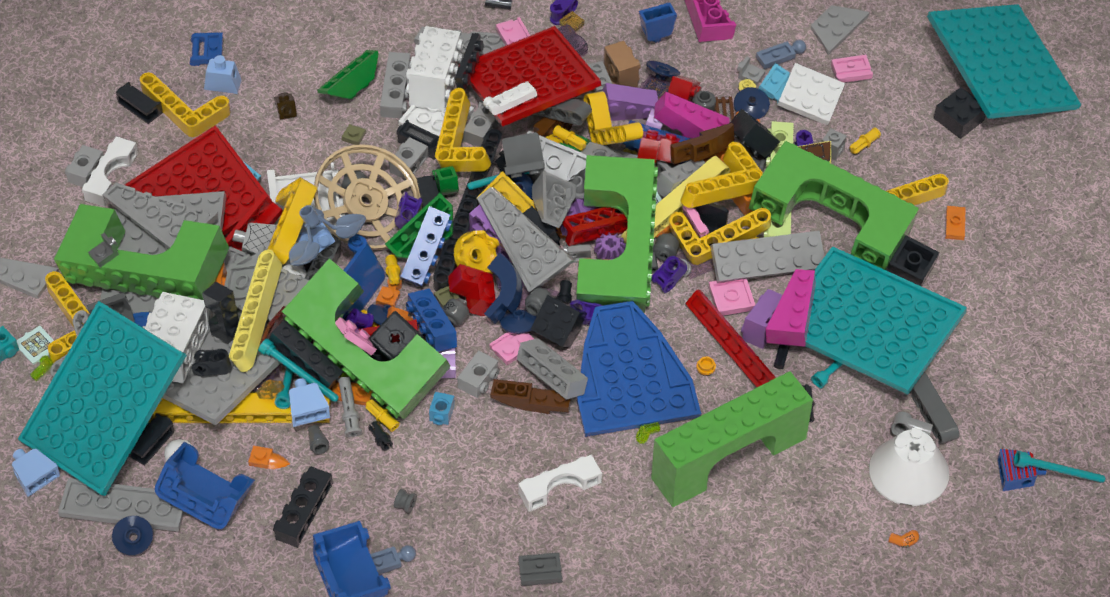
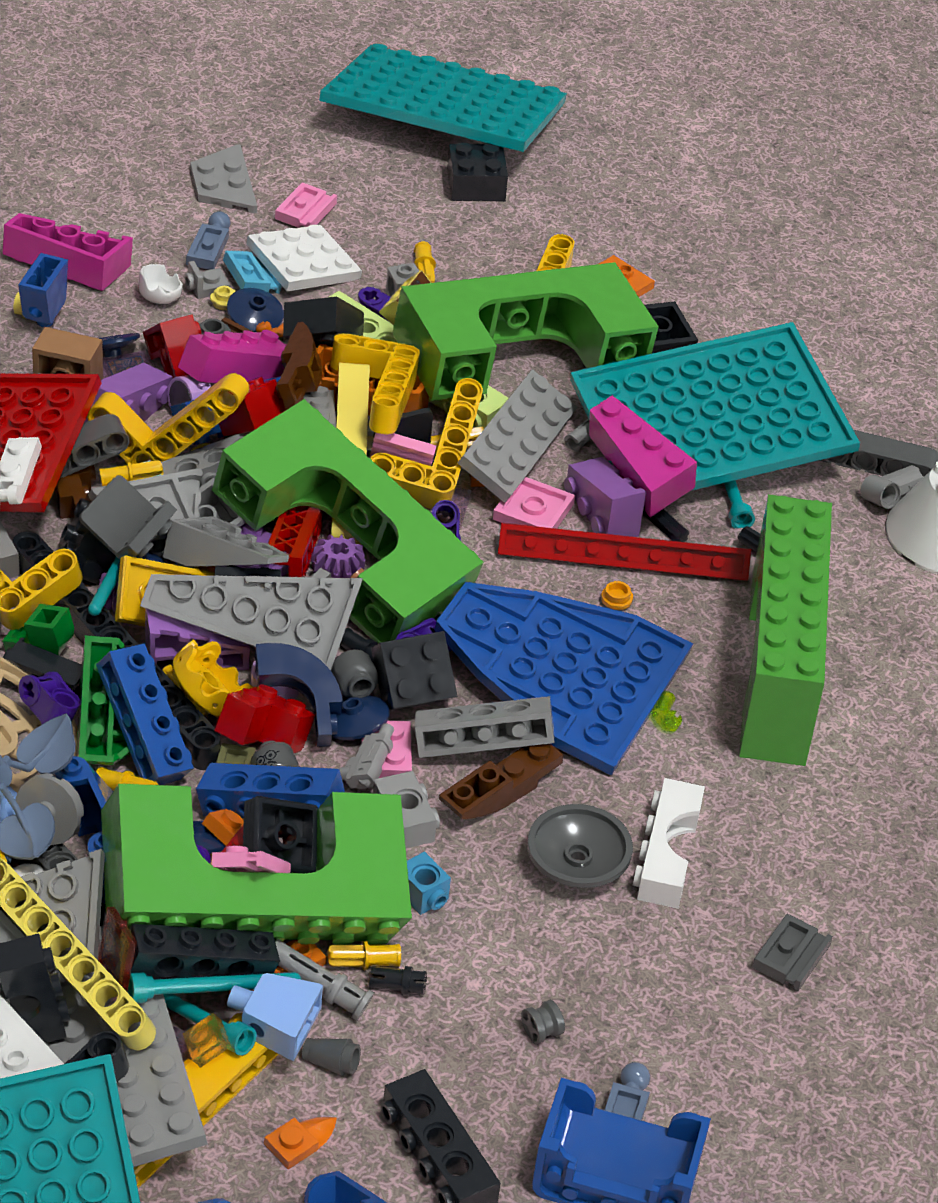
camera: 55 degrees left, 10 degrees down
(329, 248) = (59, 798): none -> light grey plate
(489, 342) = (368, 763): none -> light grey piece
(517, 440) = (583, 834): none -> dark grey dish
(722, 54) = (157, 285): none -> white hair

